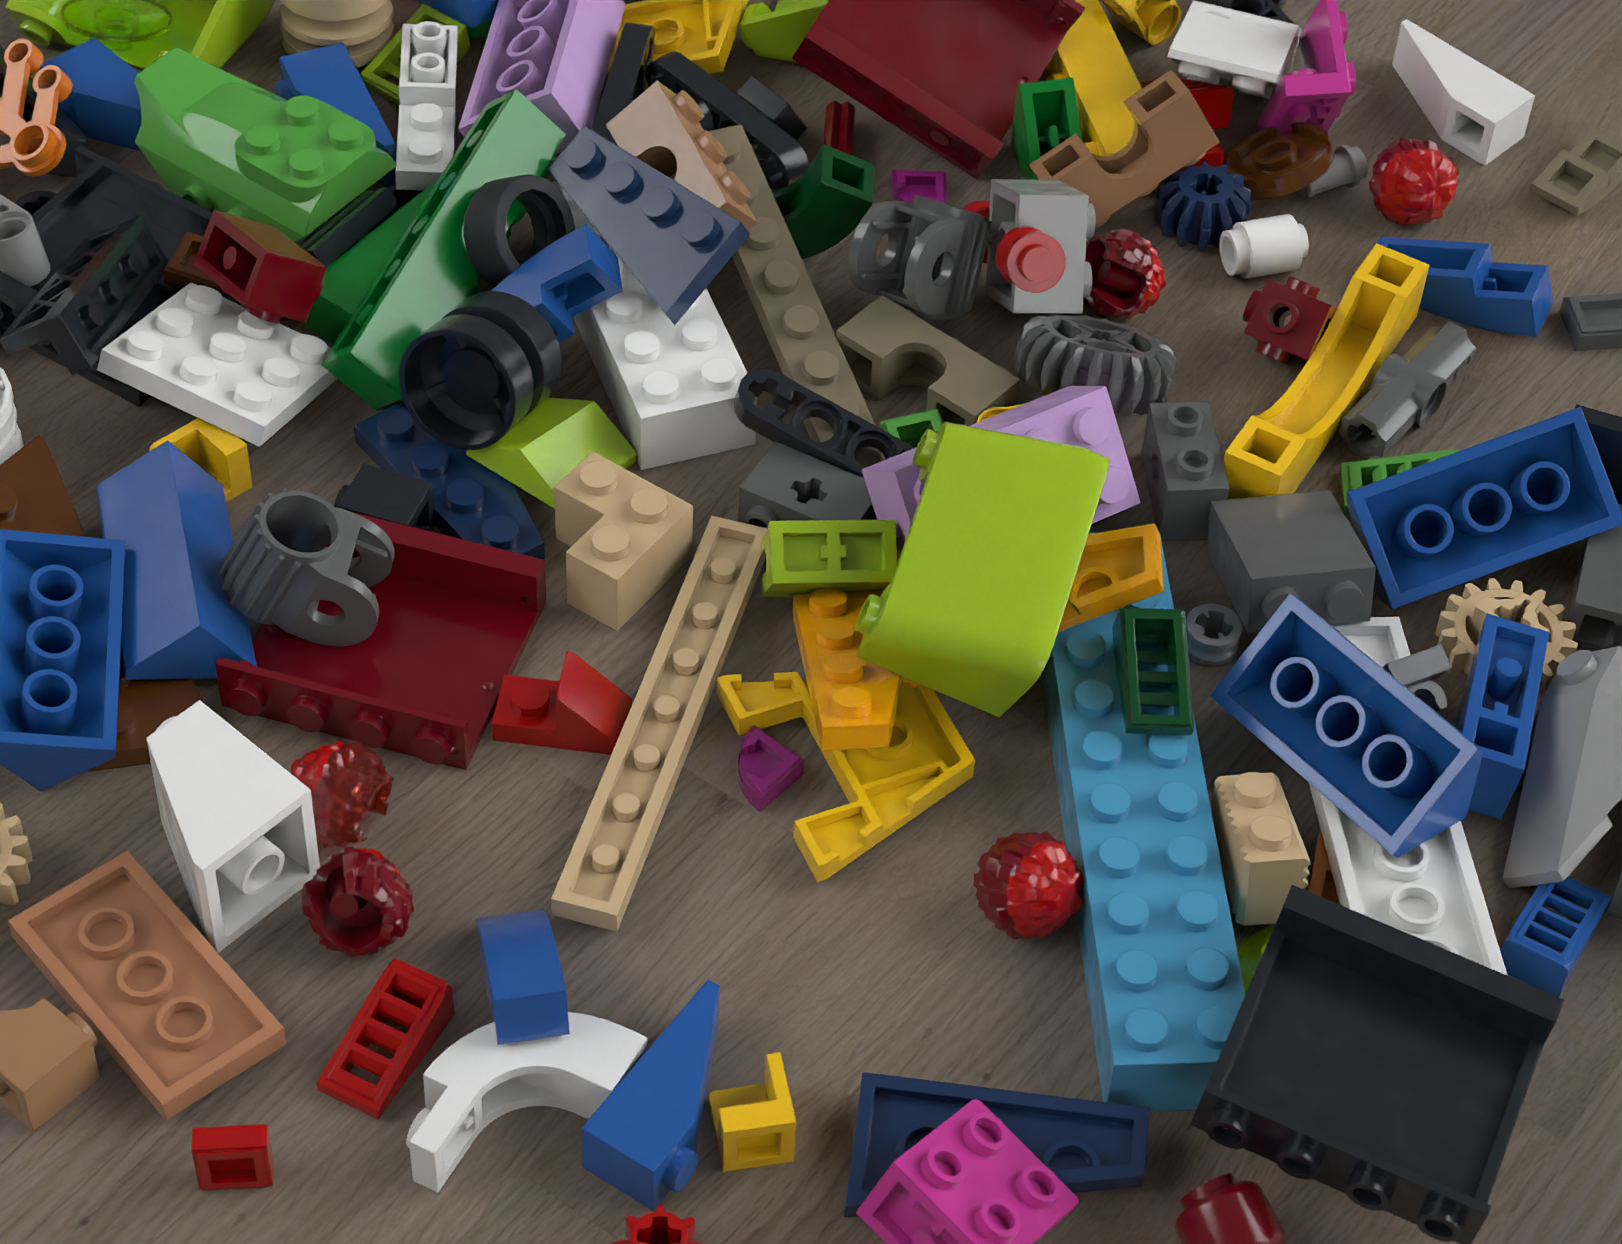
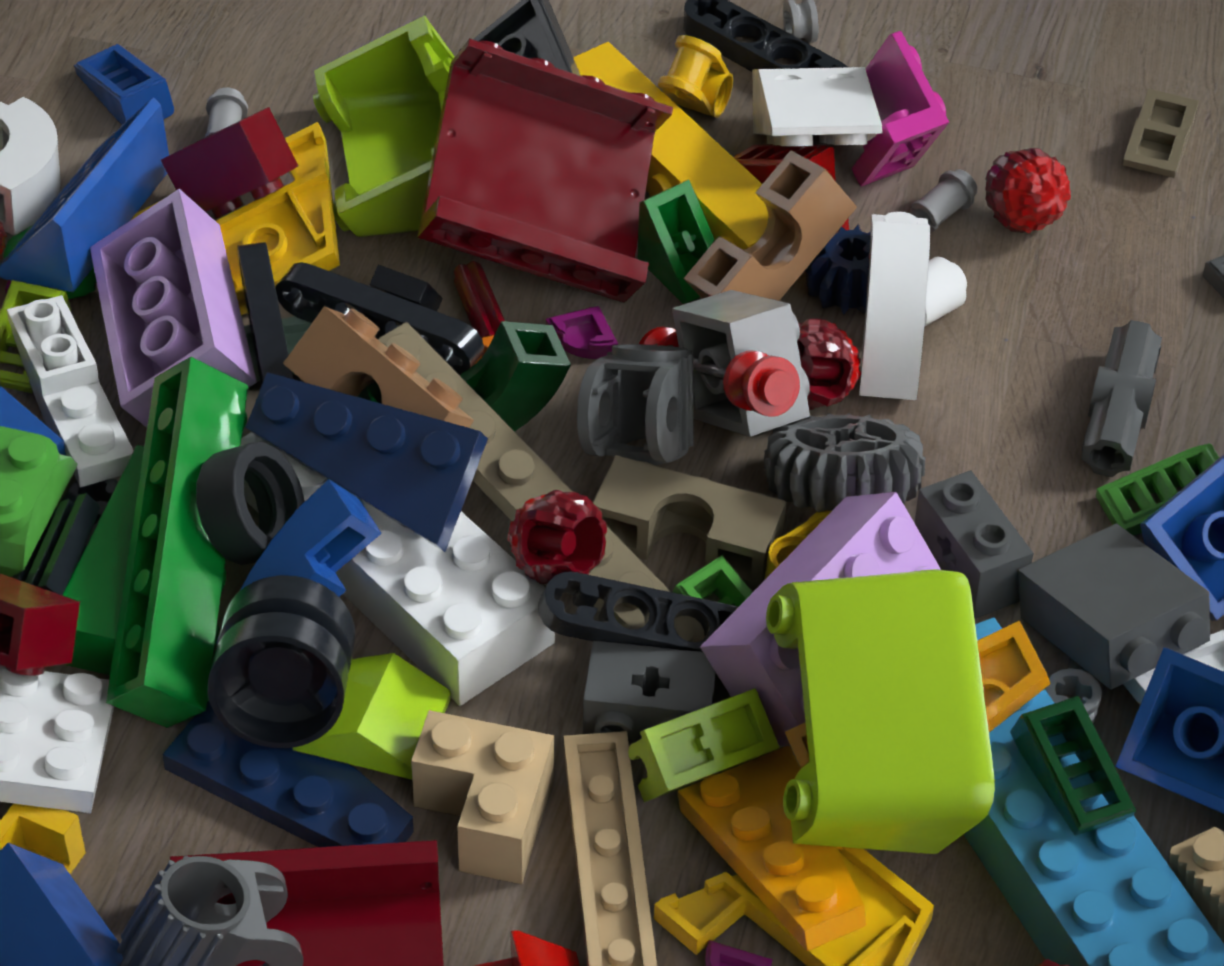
camera: 20 degrees left, 0 degrees up
(389, 497) = (242, 825): black brick -> none
(780, 337) = (557, 535): none -> dark red piece
(1215, 240) = (895, 306): none -> white arch
(1270, 307) = (1012, 368): dark red brick -> none
(1281, 162) = (910, 188): reddish brown tile -> none
(1287, 439) = (1052, 410): yellow arch -> none
(1460, 96) = (1018, 90): white slope -> none
(1475, 290) = (1113, 276): blue slope -> none

